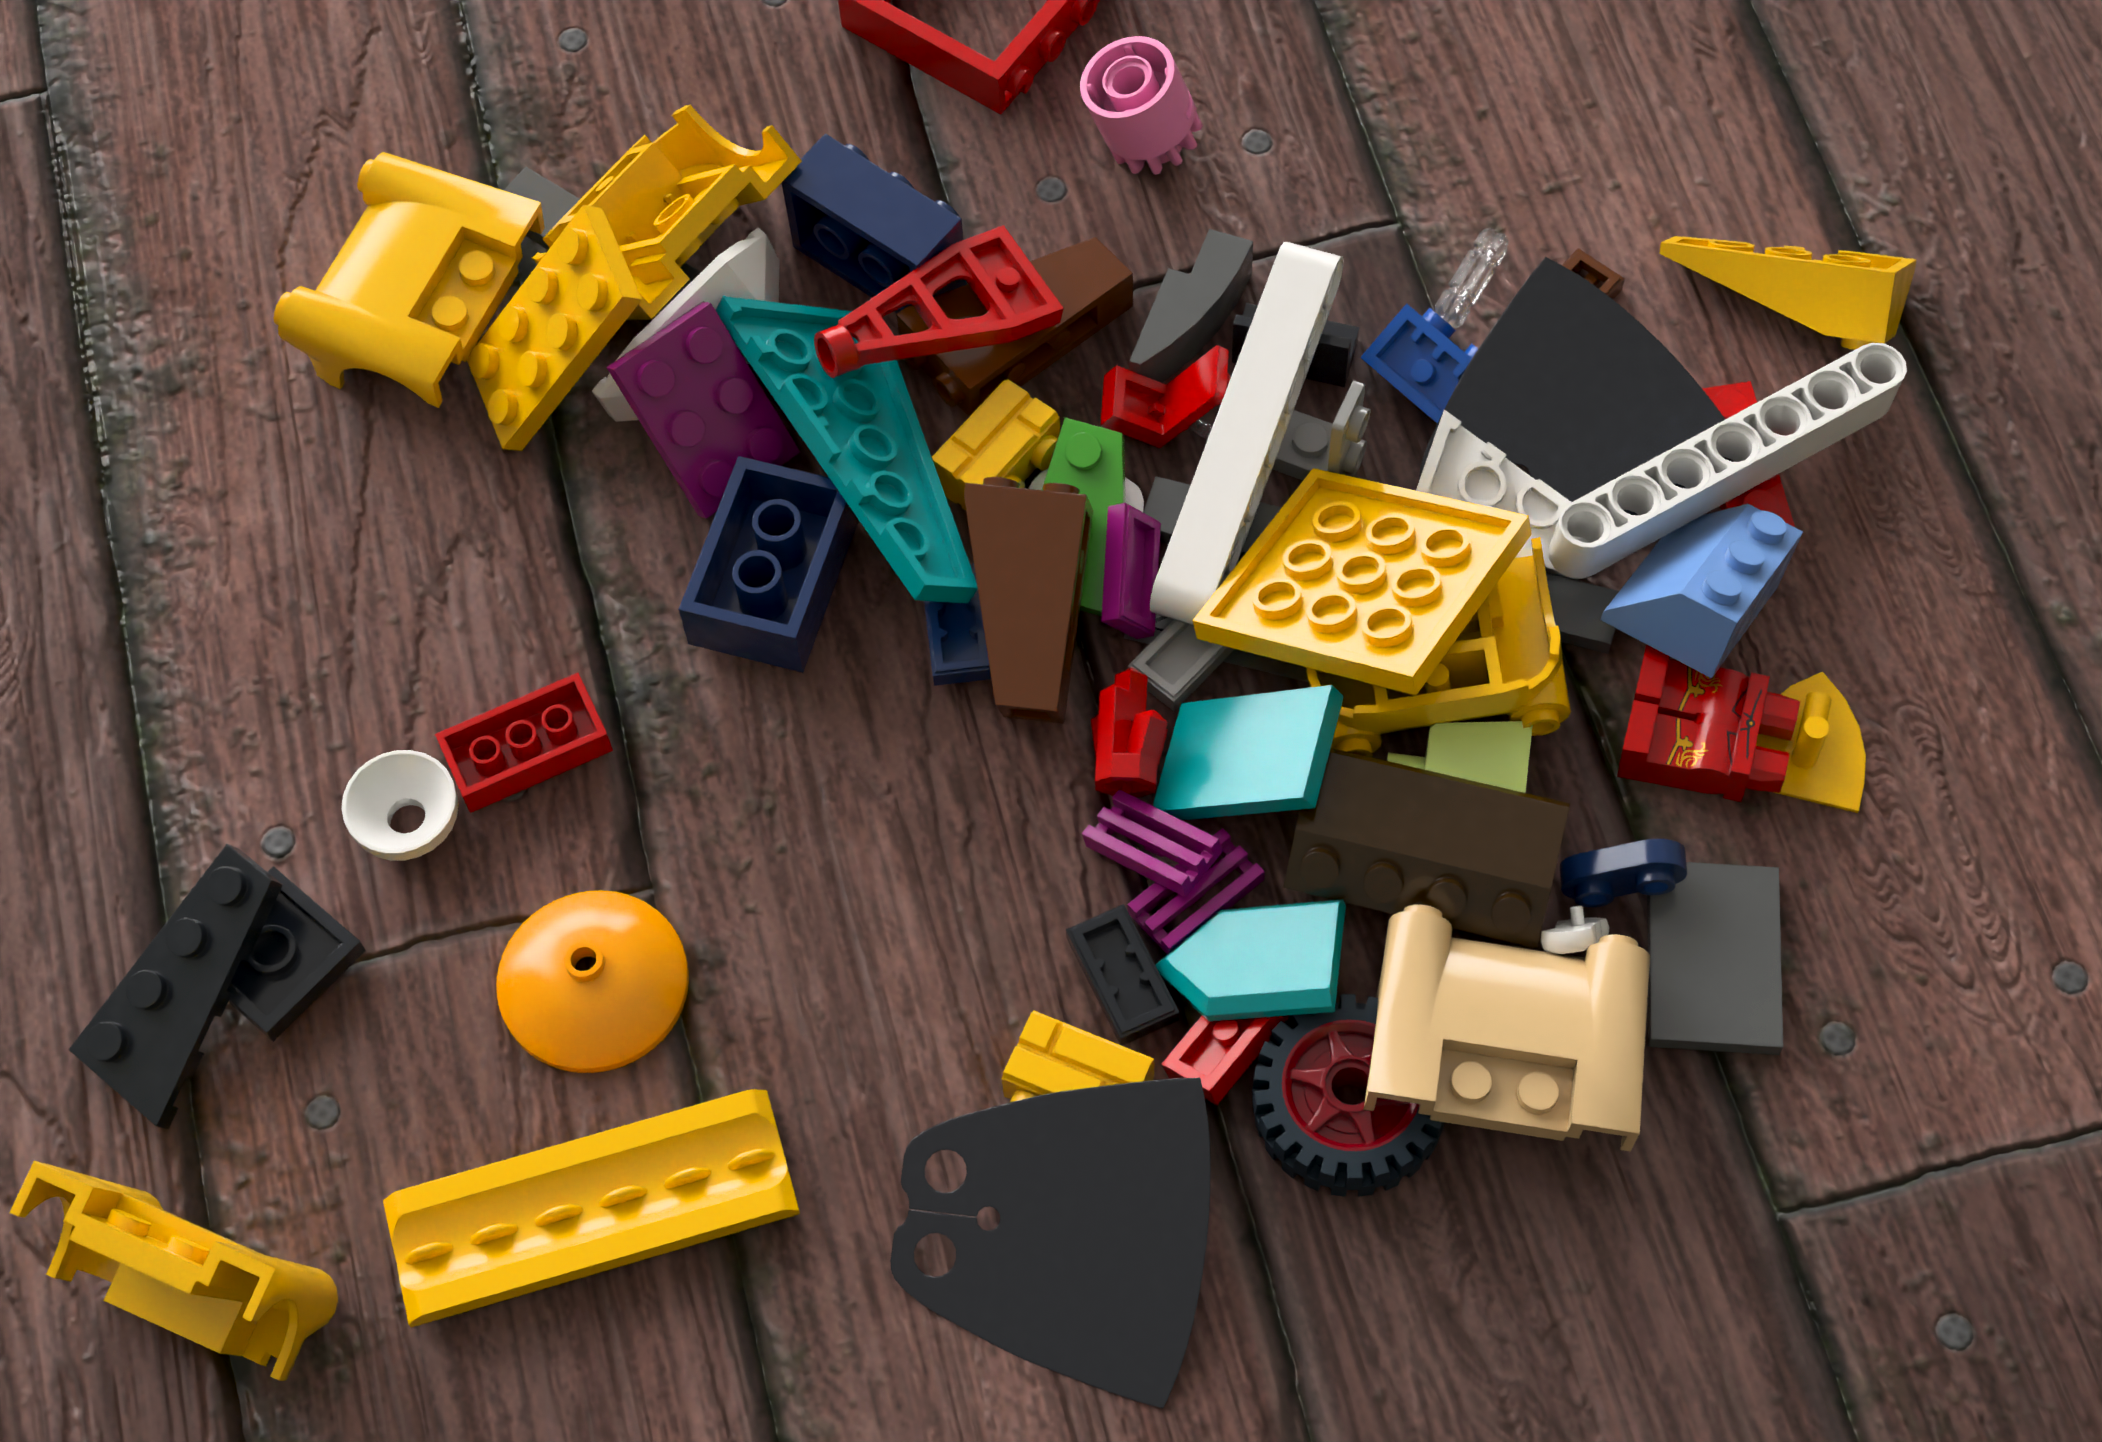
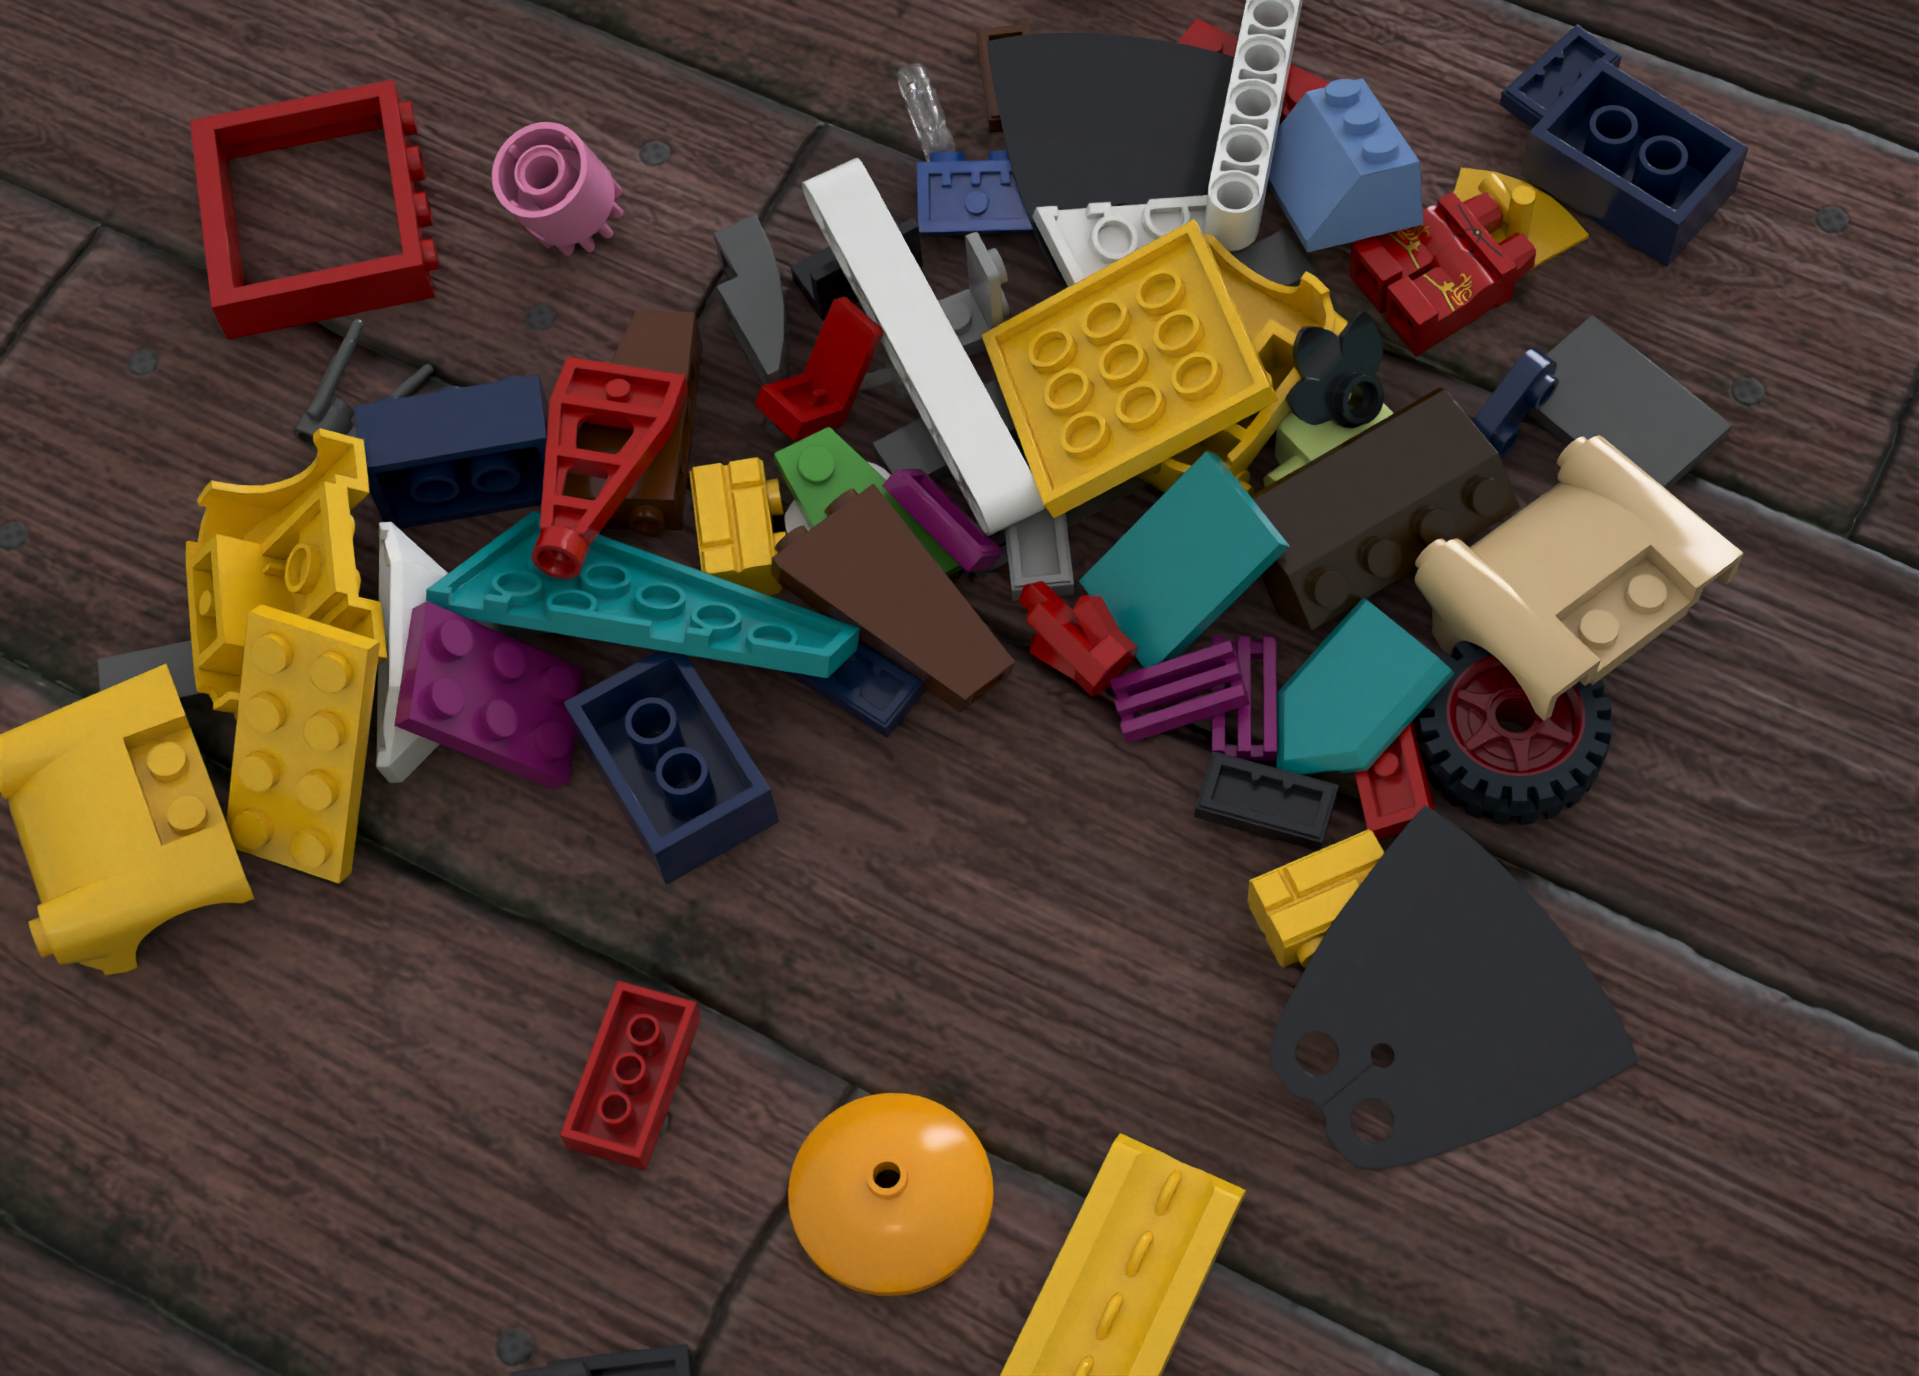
camera: 45 degrees left, 0 degrees up
(395, 782) = (578, 1187): white piece -> none
(837, 124) = (333, 413): none -> dark grey plant
(1498, 712) = (1335, 368): none -> black plate
(1574, 934) = (1531, 475): white piece -> none
(1945, 783) = (1633, 161): none -> dark blue brick
(1976, 674) = (1554, 74): none -> dark blue plate

